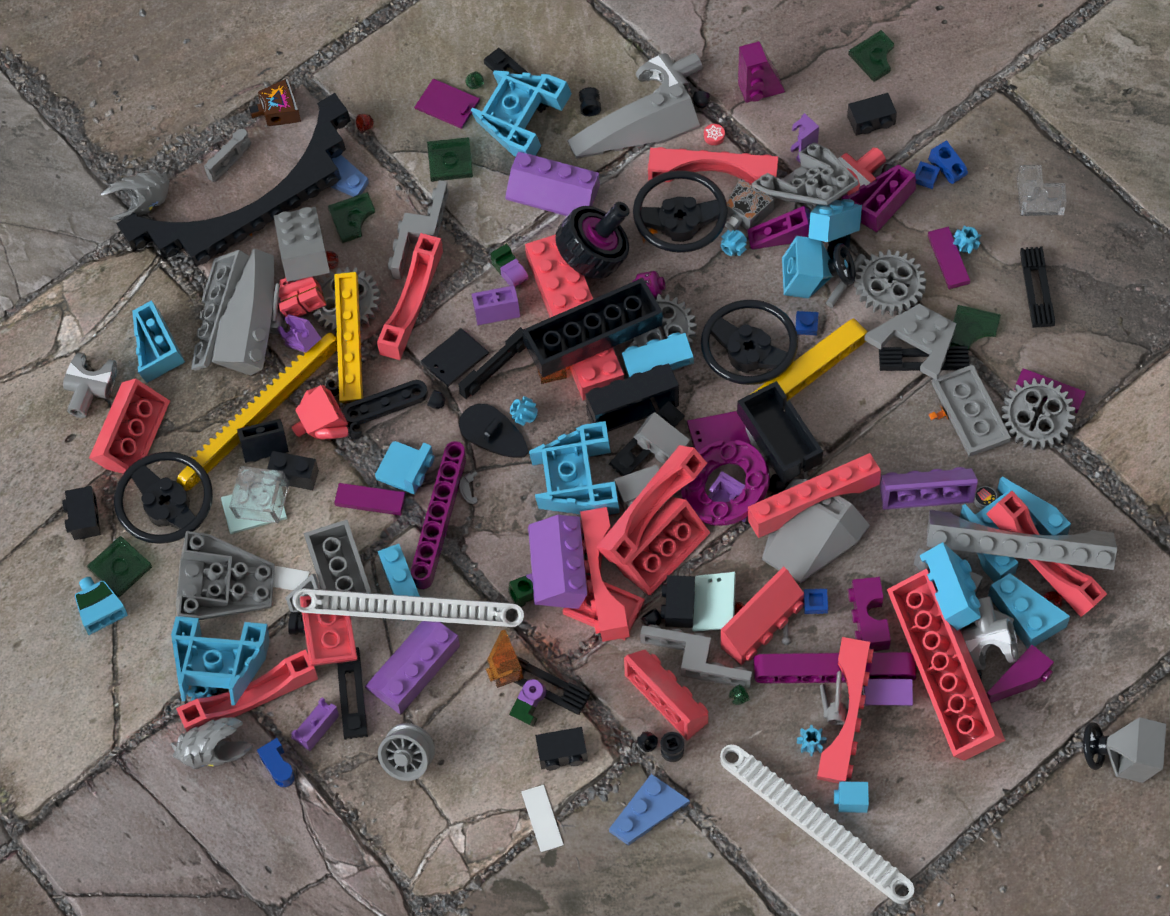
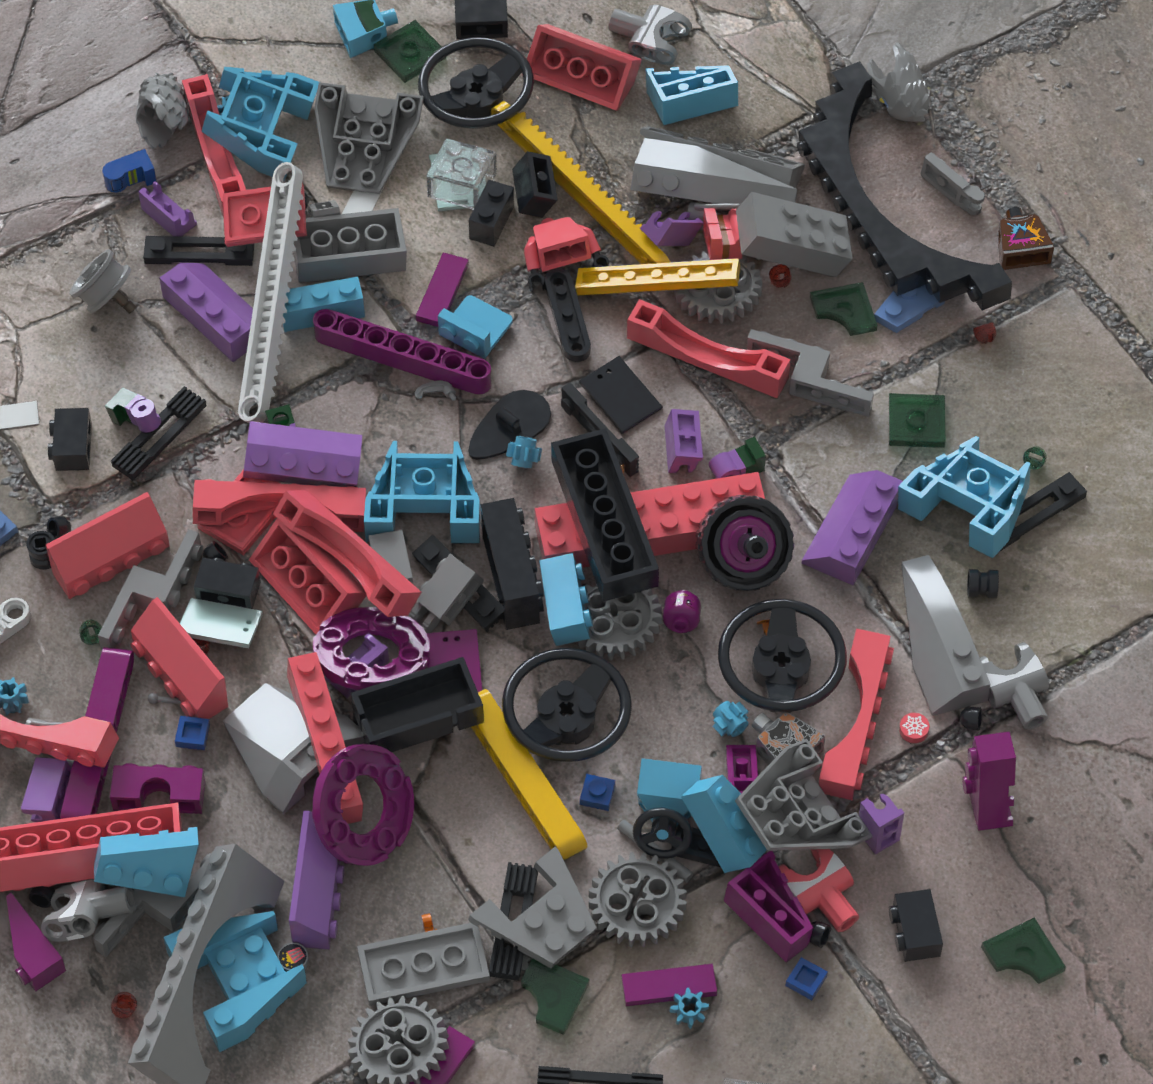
camera: 95 degrees right, 5 degrees down
(436, 400) = (562, 367): black hinge -> none
(447, 103) = (1008, 428): magenta container -> none
(503, 662) = (188, 386): clear orange slope -> none
(843, 450) = (397, 804): none -> magenta plate
(948, 161) = (821, 1009): blue leg -> none
(1033, 614) = (115, 967): medium azure wedge -> none
(1074, 586) = (215, 967): coral arch -> none

